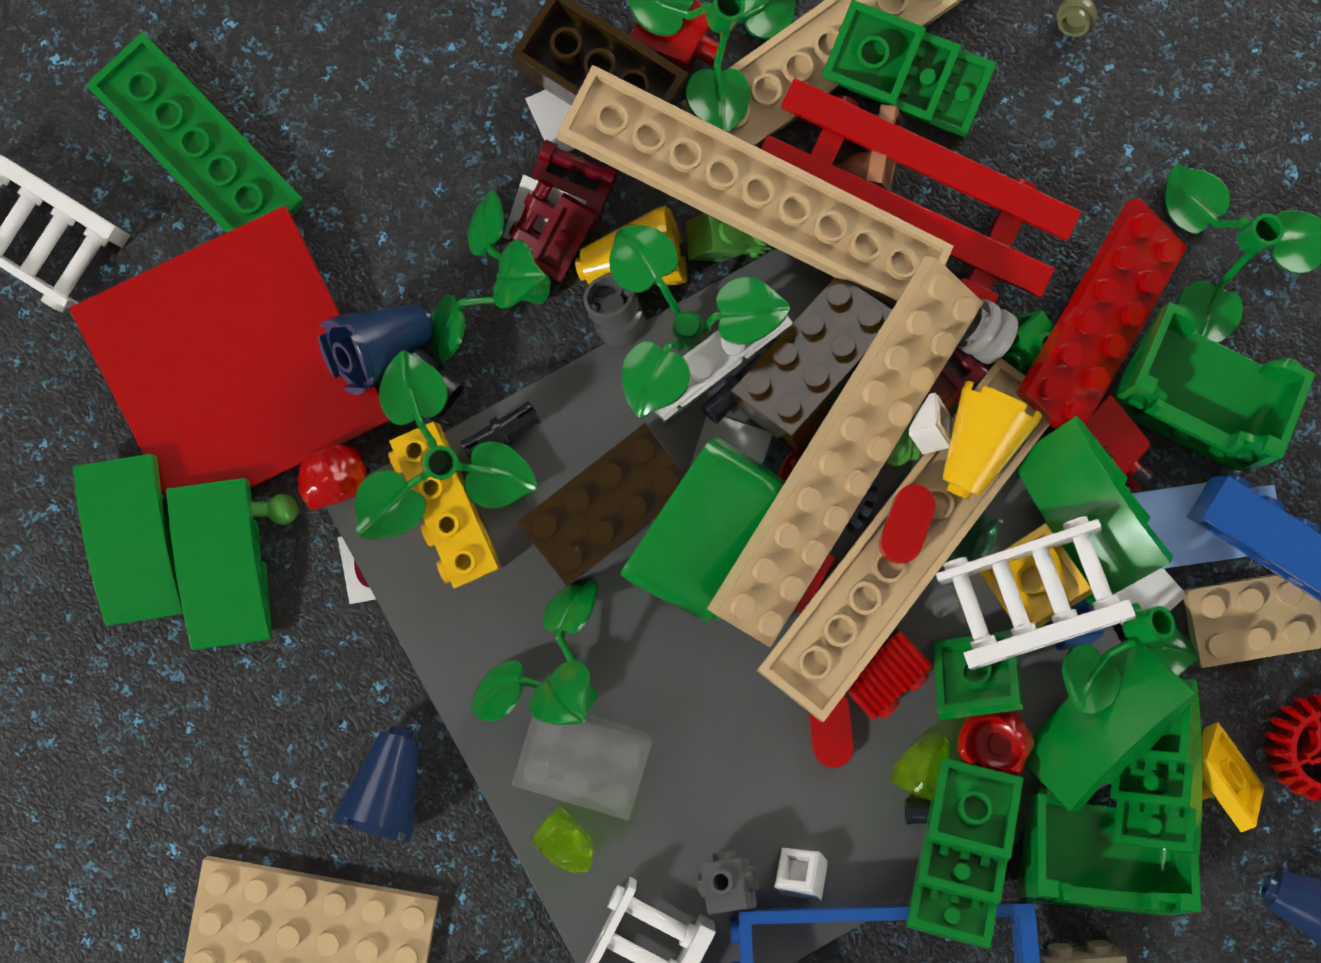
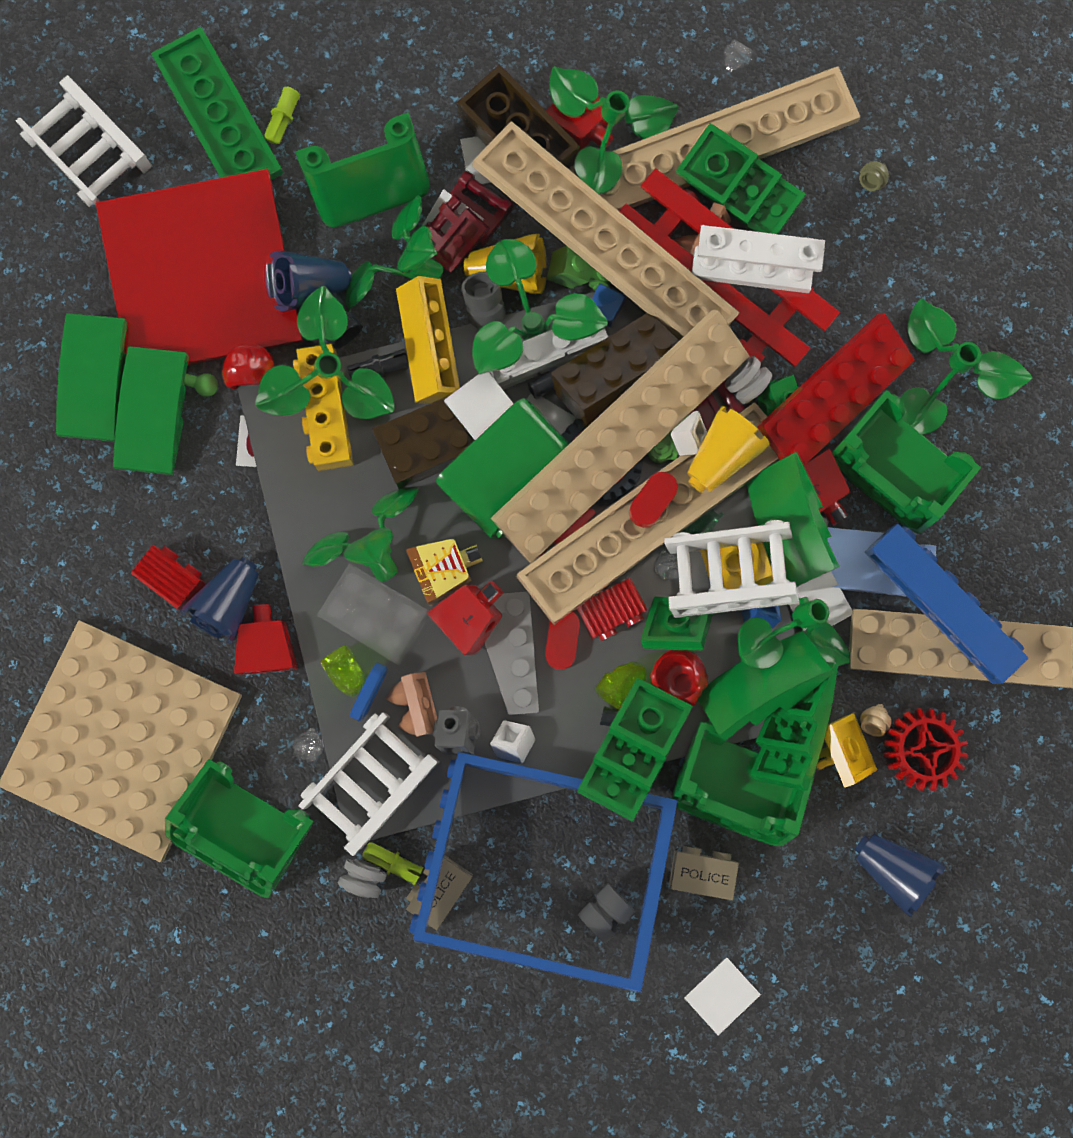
camera: 20 degrees right, 5 degrees down
(282, 125) = (282, 115): none -> lime axle
(304, 775) = (167, 576): none -> red brick
(421, 189) = (368, 180): none -> green windscreen
(451, 831) = (264, 645): none -> red torso
(541, 942) = (308, 745): none -> clear plate
(557, 383) = (427, 339): none -> yellow brick
(602, 860) = (369, 691): none -> blue tile
(651, 457) = (479, 403): none -> white sticker
(654, 676) = (442, 567): none -> torso
(663, 845) = (416, 693): none -> nougat tile
(705, 733) = (468, 616): none -> red torso
(763, 746) = (513, 655): none -> light grey wing
(777, 273) = (608, 302): none -> blue slope
(966, 171) = (757, 259): none -> white fence
(1249, 725) = (875, 720): none -> tan plate

